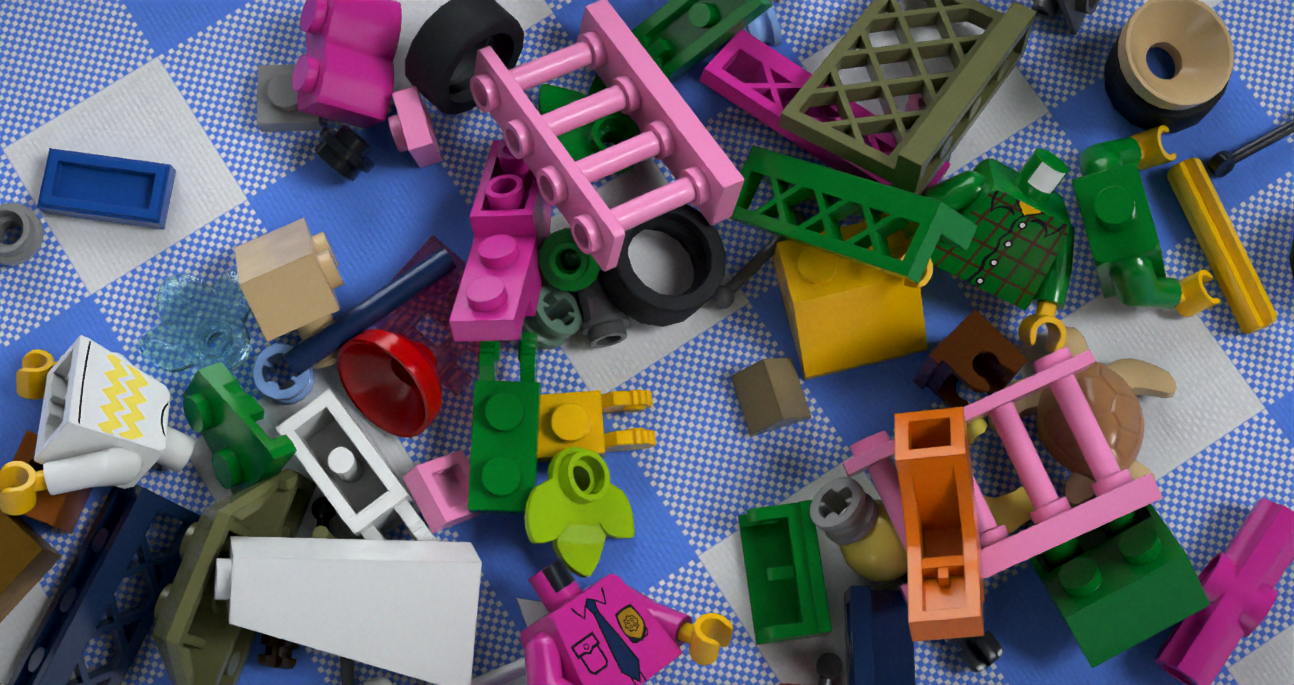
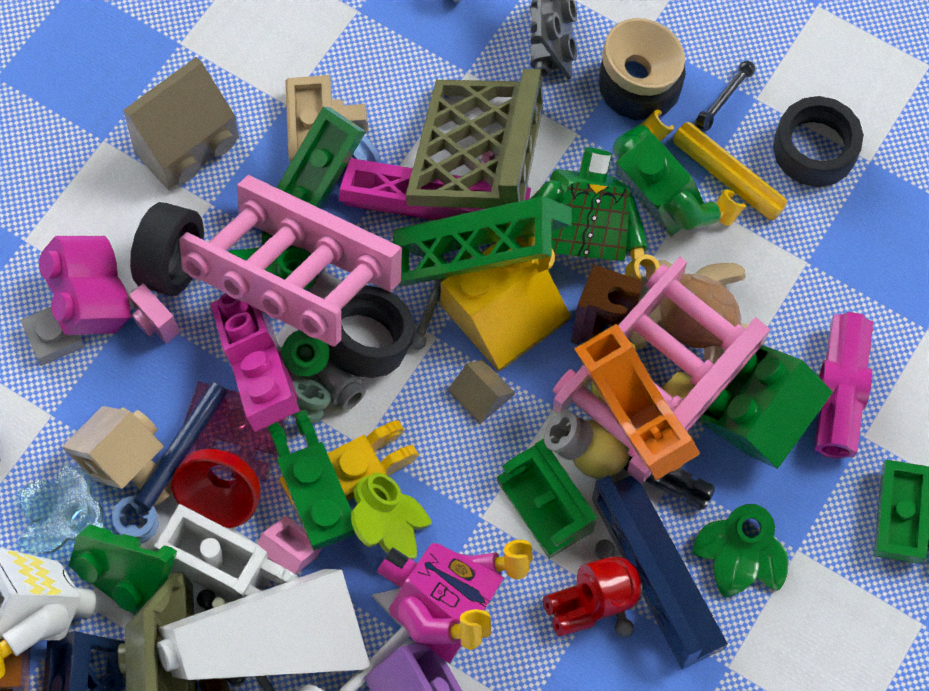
camera: 30 degrees left, 10 degrees down
(345, 151) = (110, 351): black plate -> none

